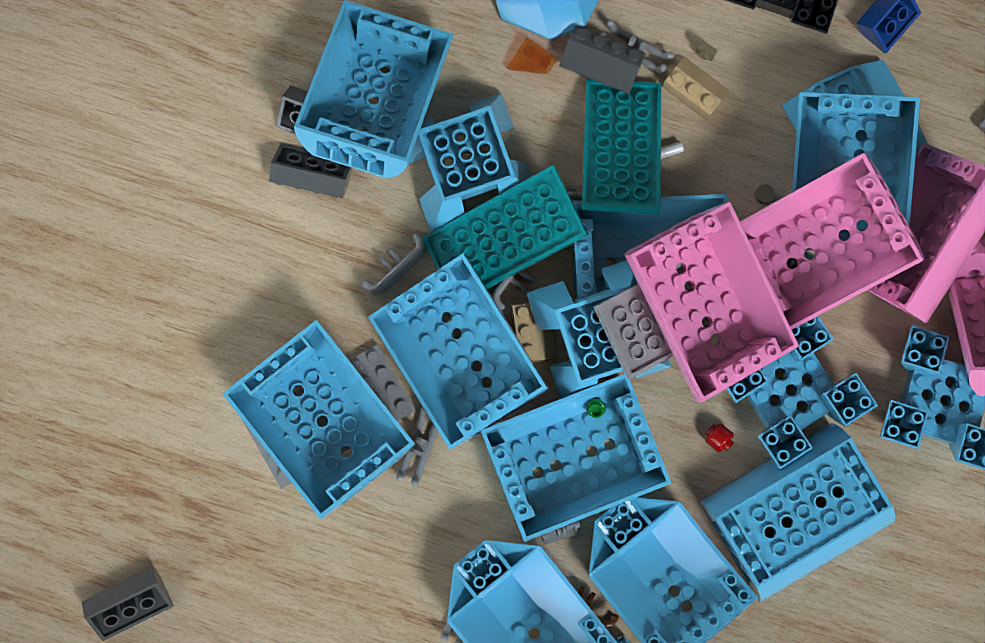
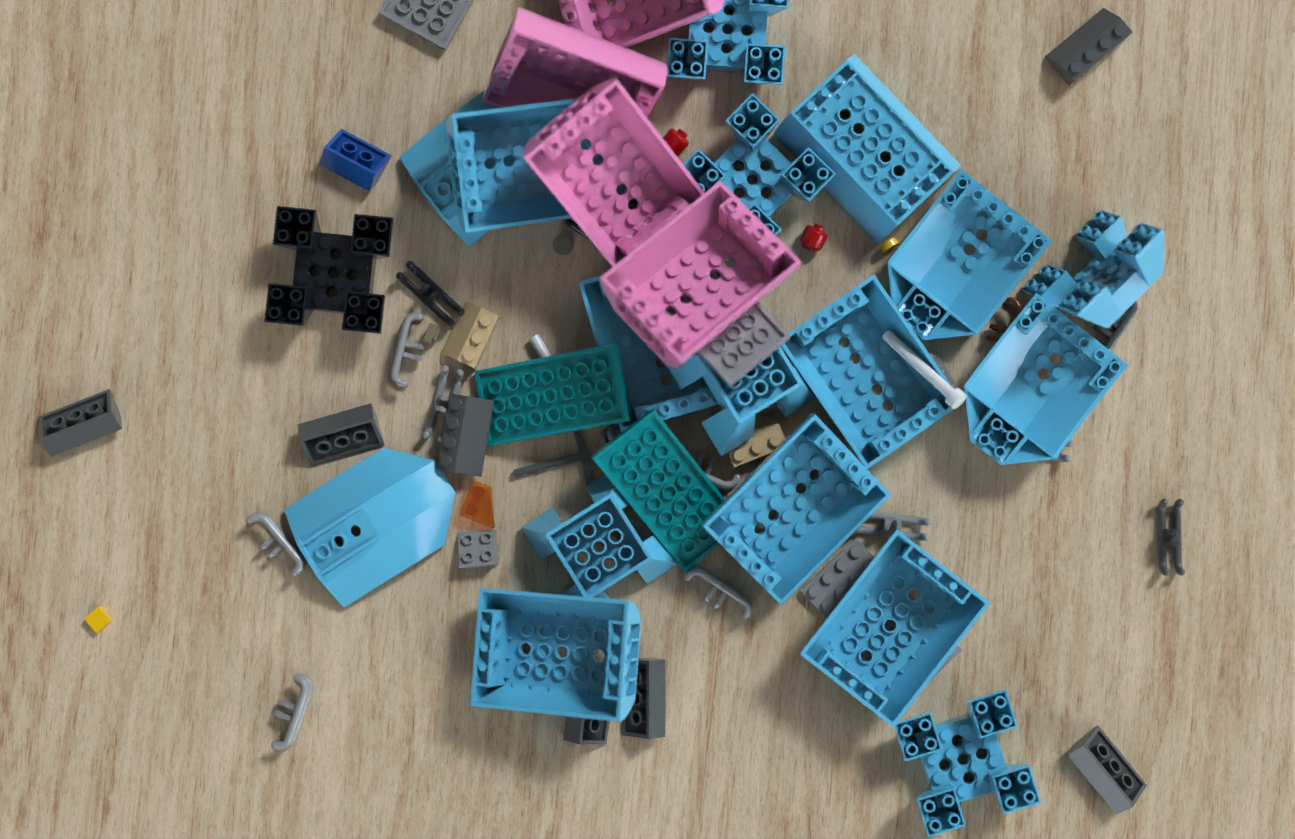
camera: 95 degrees left, 5 degrees up
(137, 427) = (1009, 783): none -> medium azure slope
(490, 48) = (477, 549): none -> light grey hinge
(531, 532) = (953, 396): none -> white piece
(562, 168) = (583, 455): none -> dark grey piece
(596, 408) = (815, 363): green plate -> none
(695, 511) = (889, 245): none -> yellow tile
(699, 19) = (402, 342): none -> light grey piece
(745, 58) = (430, 293): none -> black piece
(842, 324) = (676, 140): none -> red head

